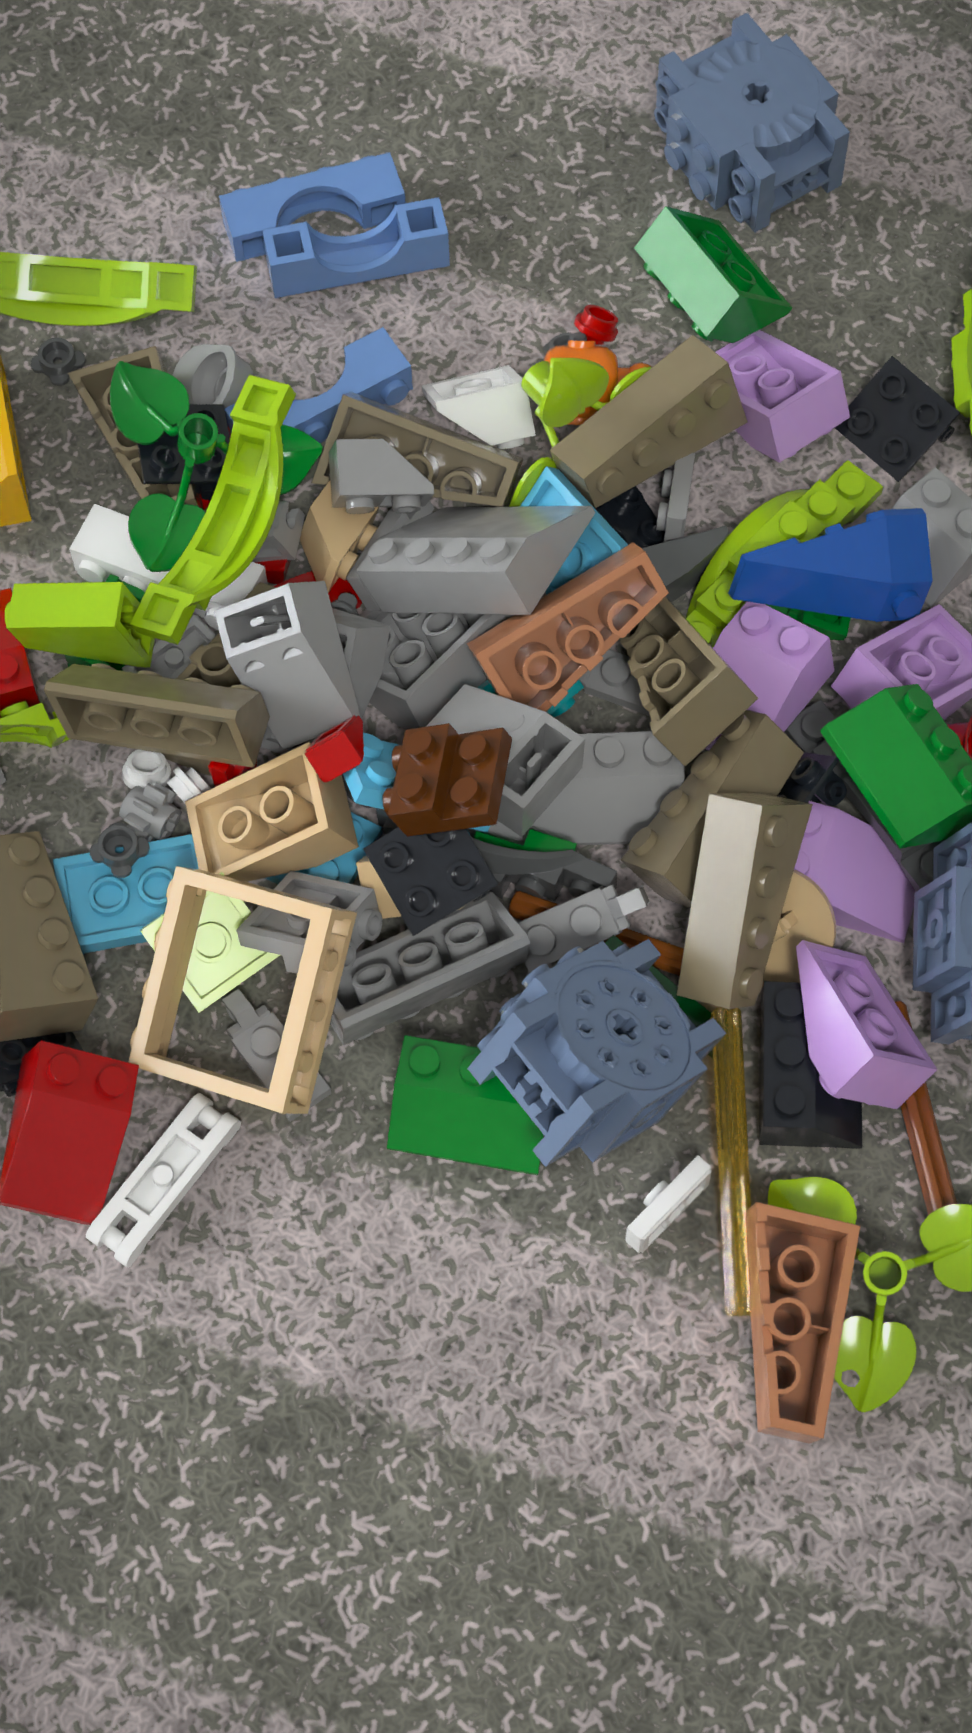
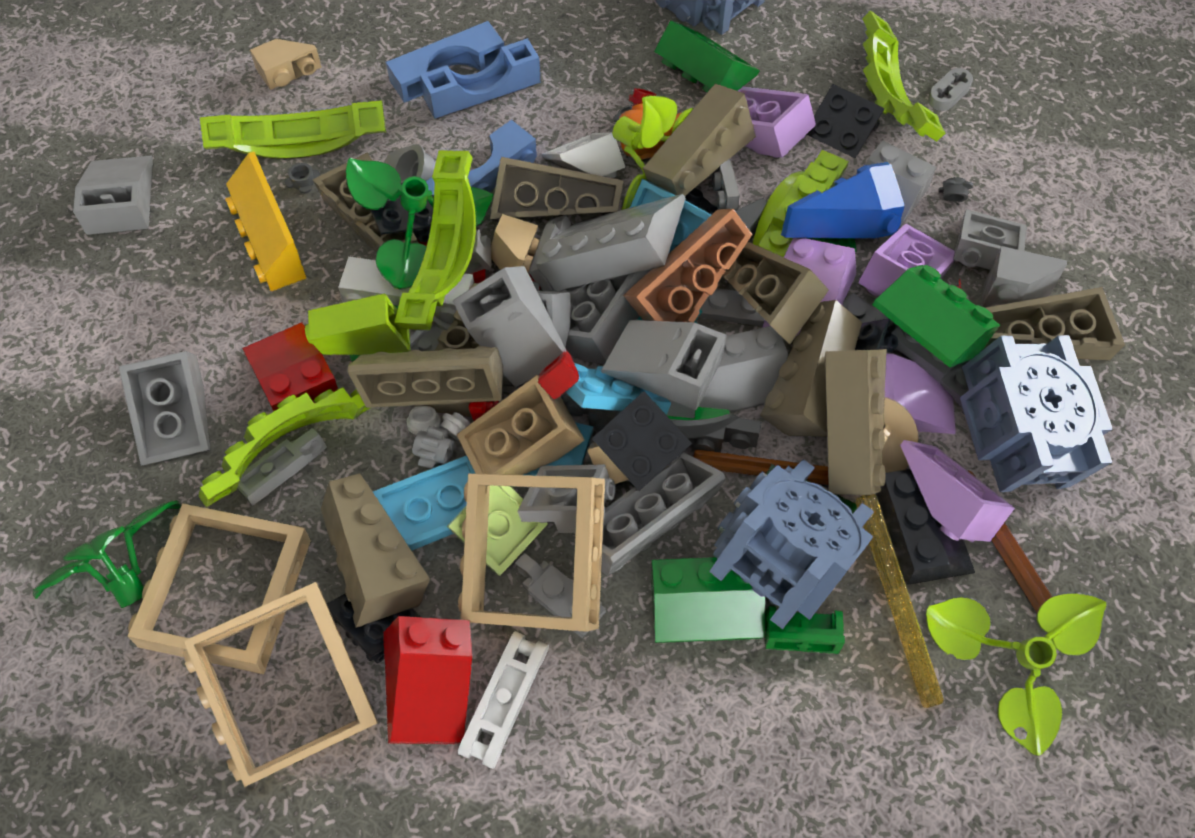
camera: 15 degrees left, 5 degrees down
(70, 164) = (284, 61): none -> tan slope
(119, 836) = (415, 466): dark grey plate -> none
(375, 475) = (533, 203): light grey slope -> none
(447, 779) = (643, 378): reddish brown plate -> none
(580, 923) = (749, 460): light grey hinge -> none
(607, 1183) = (820, 634): none -> green hinge
(667, 1203) = (860, 638): white plate -> none
(797, 1309) = (981, 698): nougat wedge -> none

